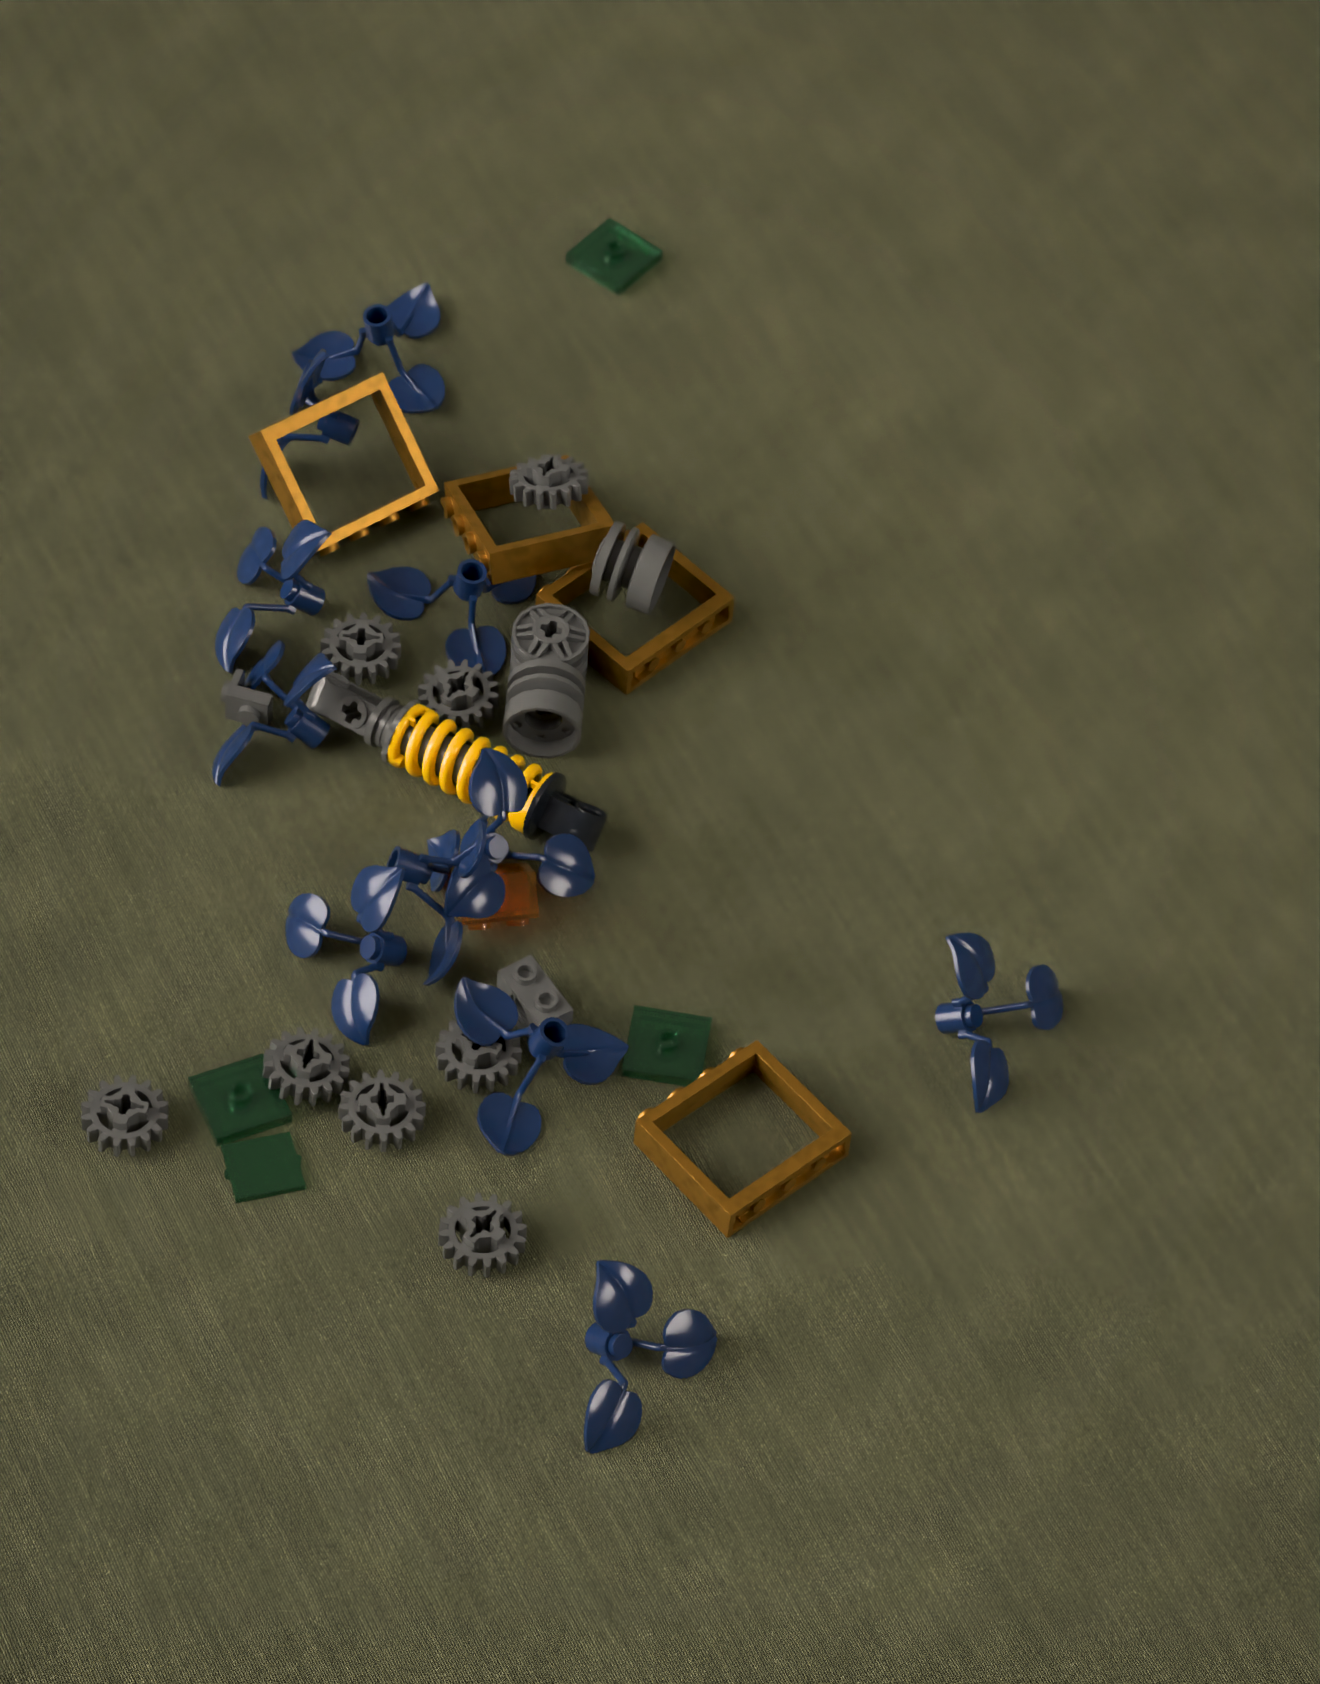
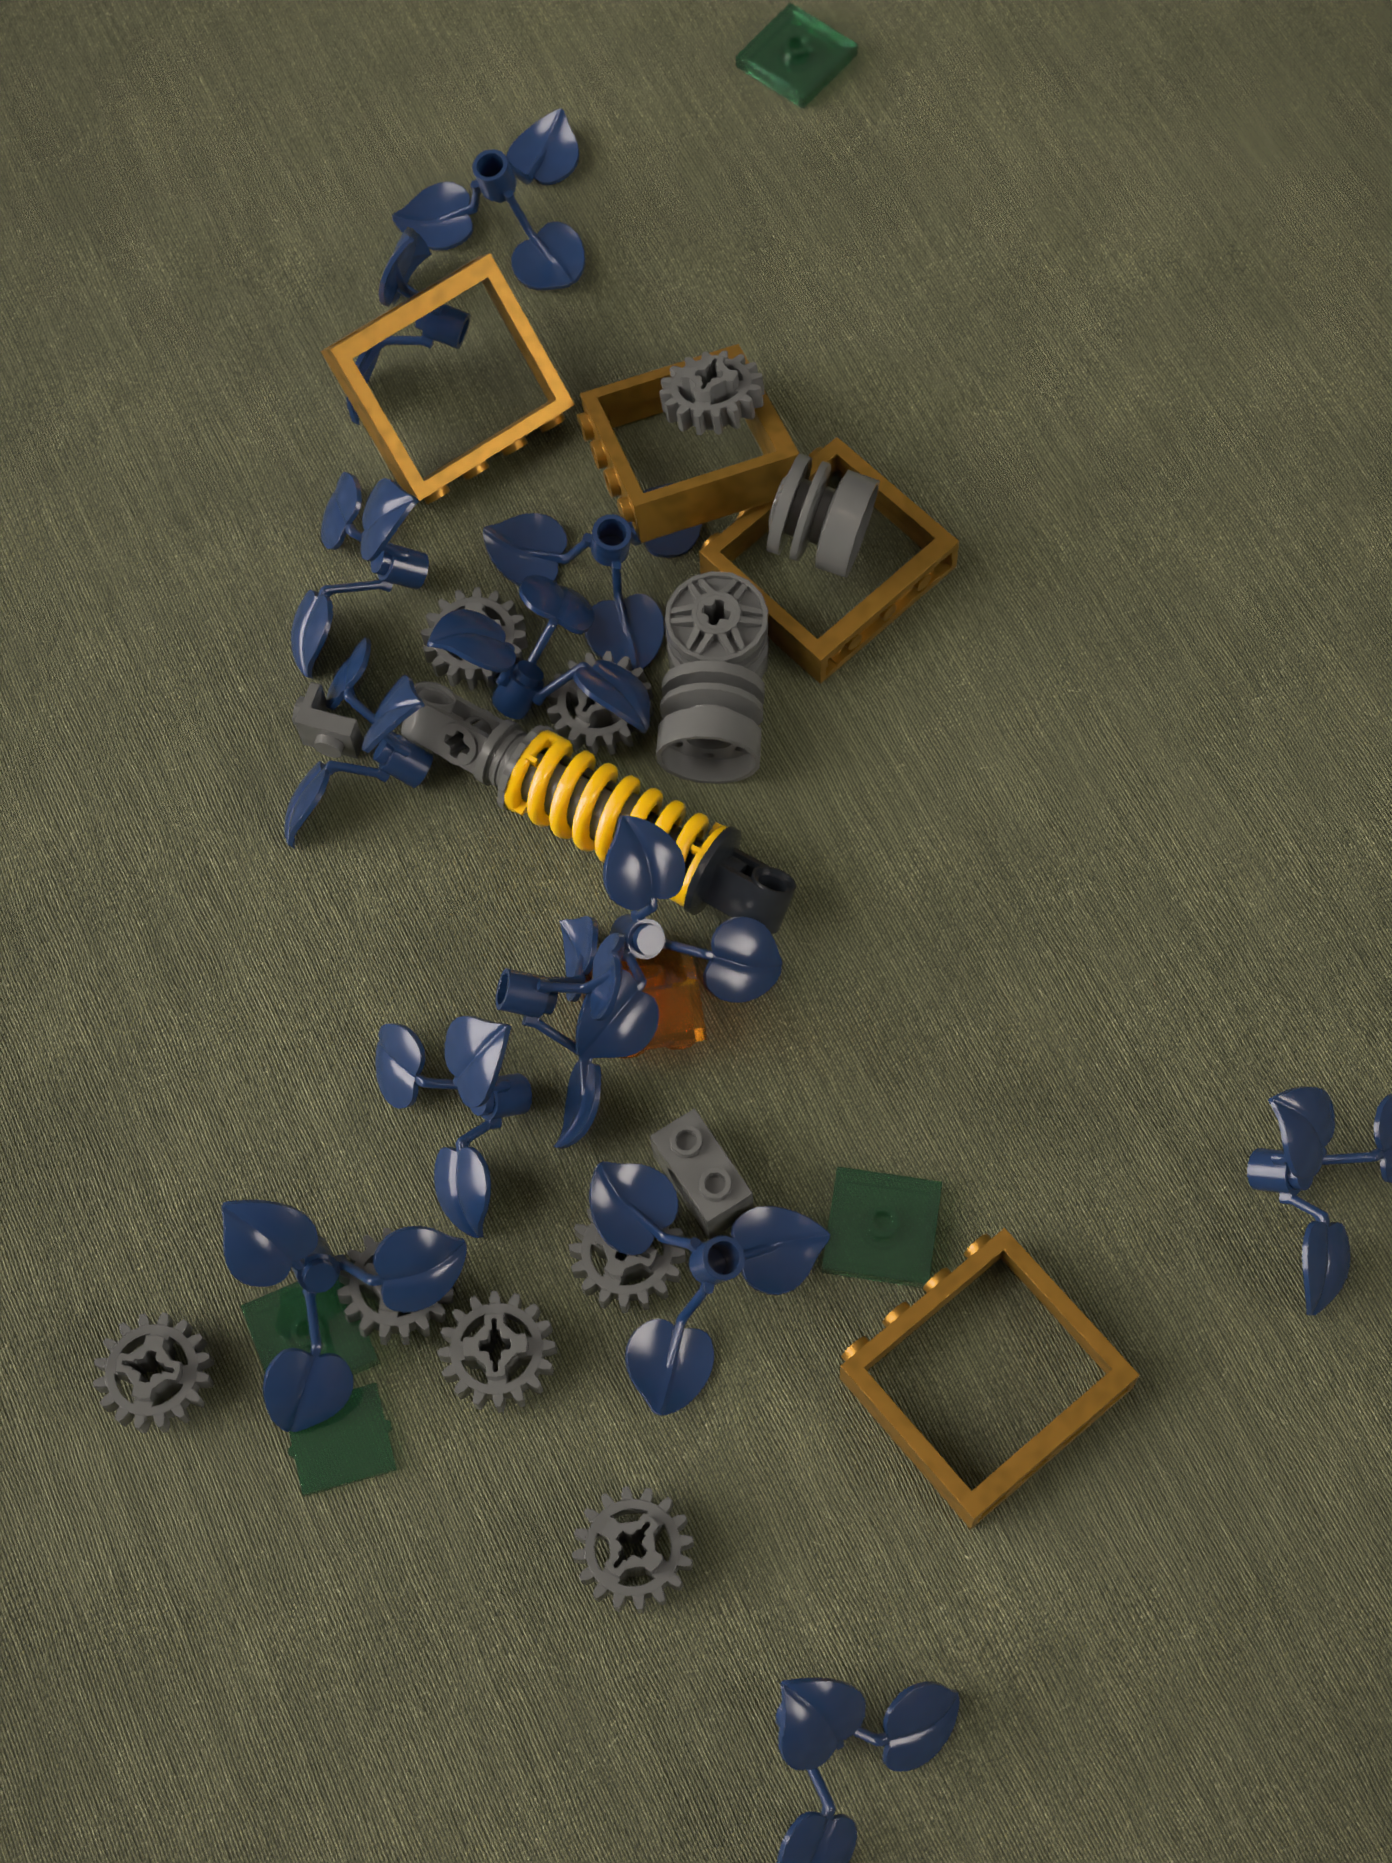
camera: 10 degrees right, 15 degrees up
(221, 1010) = (270, 1238): none -> dark blue plant
(399, 678) = (521, 684): none -> dark blue plant

